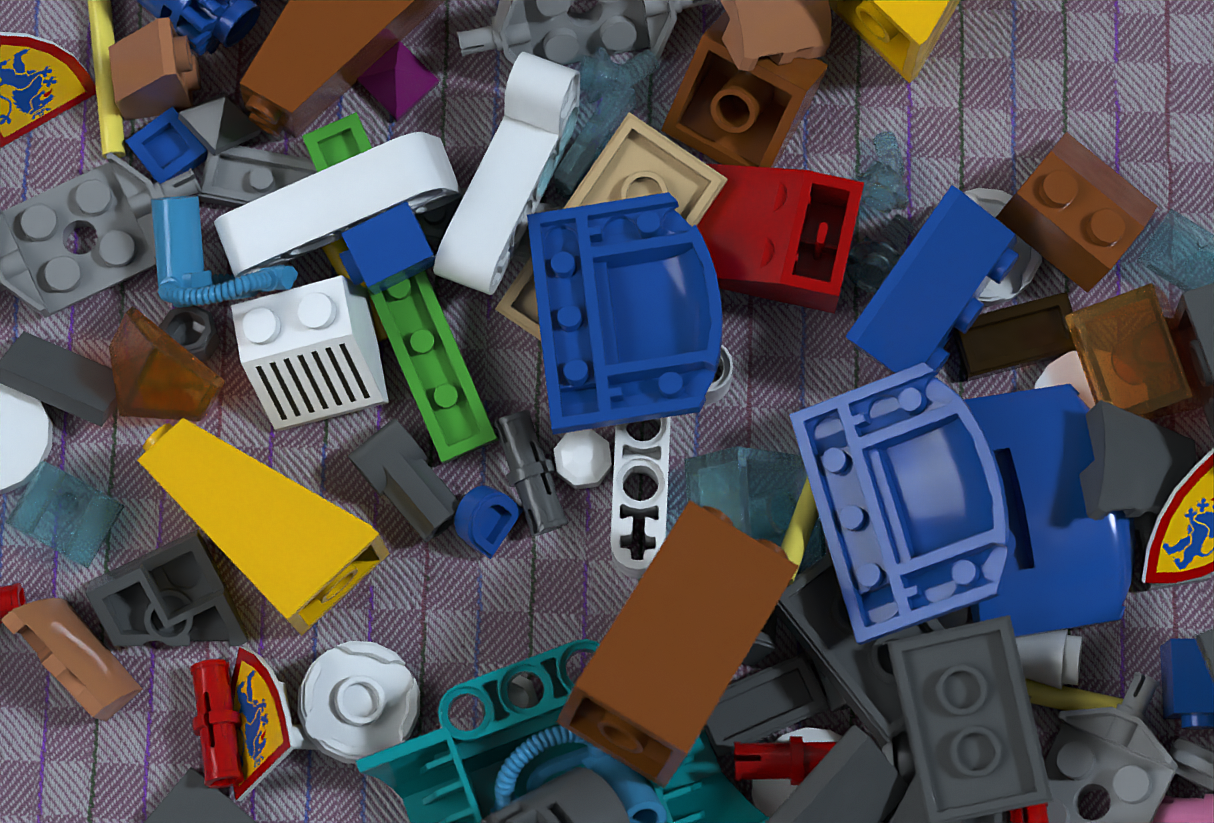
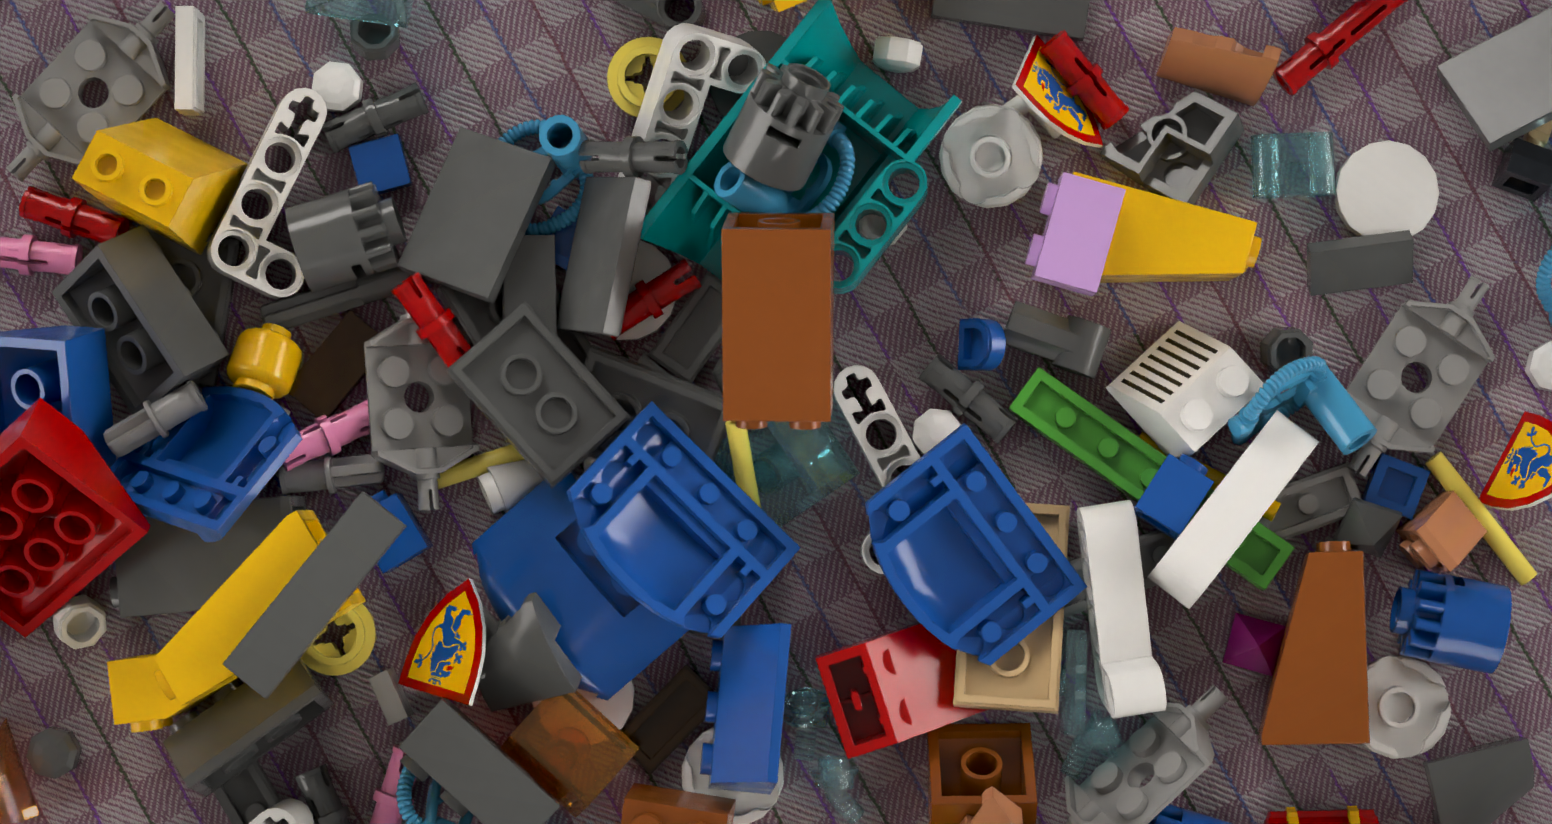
camera: 150 degrees right, 10 degrees up
(157, 374) = (1290, 306): clear orange slope -> none
(325, 549) = (1076, 233): none -> lavender brick

